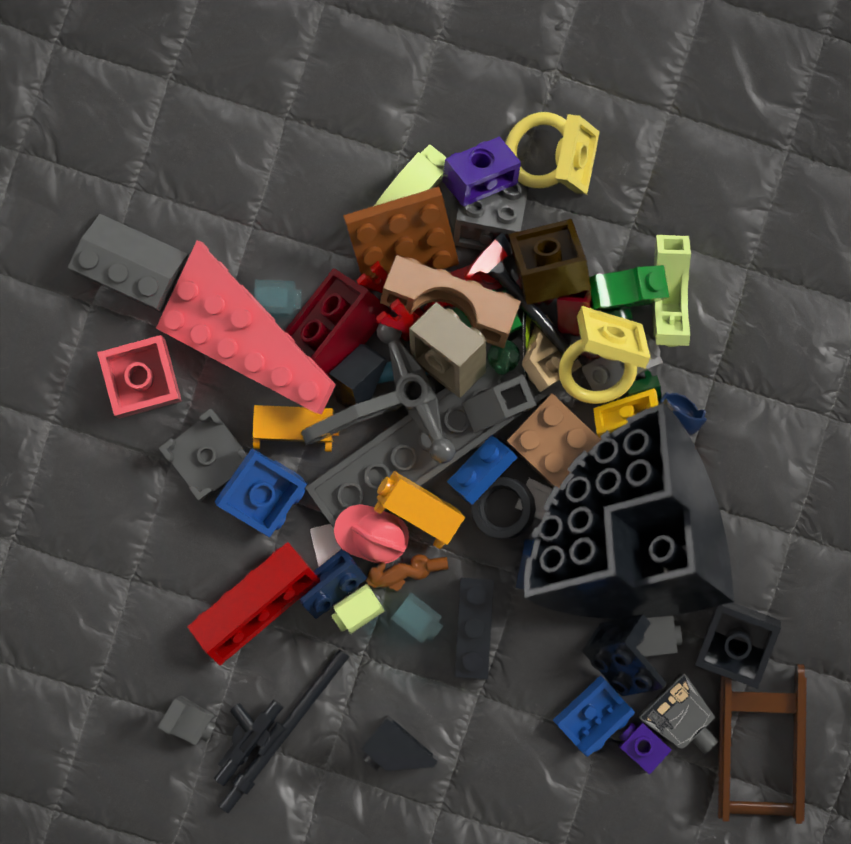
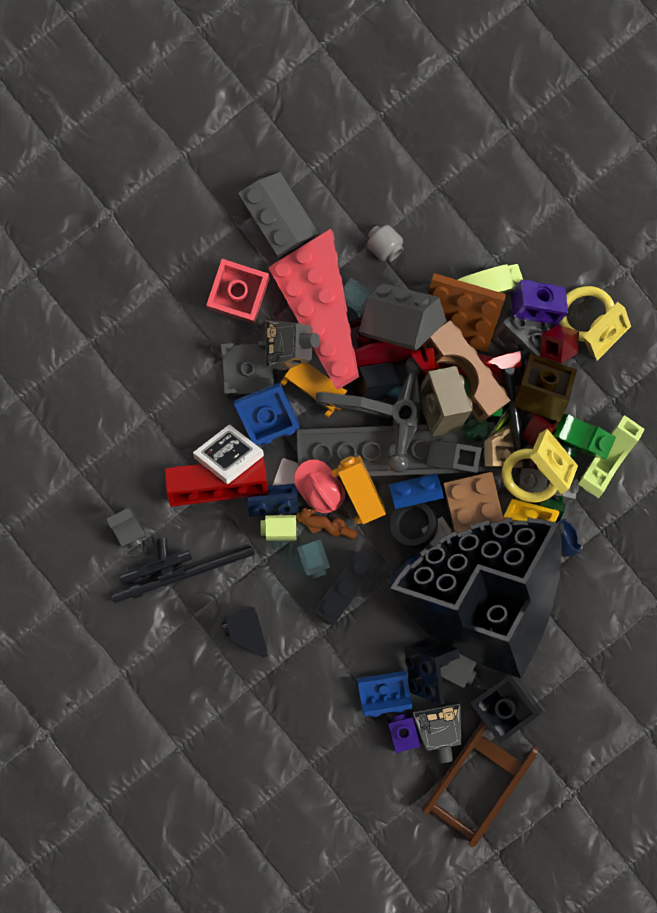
camera: 25 degrees right, 0 degrees up
(234, 399) = (288, 344): none -> dark grey torso
(247, 565) = (228, 454): none -> tile
(268, 216) = (385, 243): none -> light grey head
(339, 286) = (401, 316): none -> dark grey slope
(534, 202) = (559, 343): none -> dark red brick

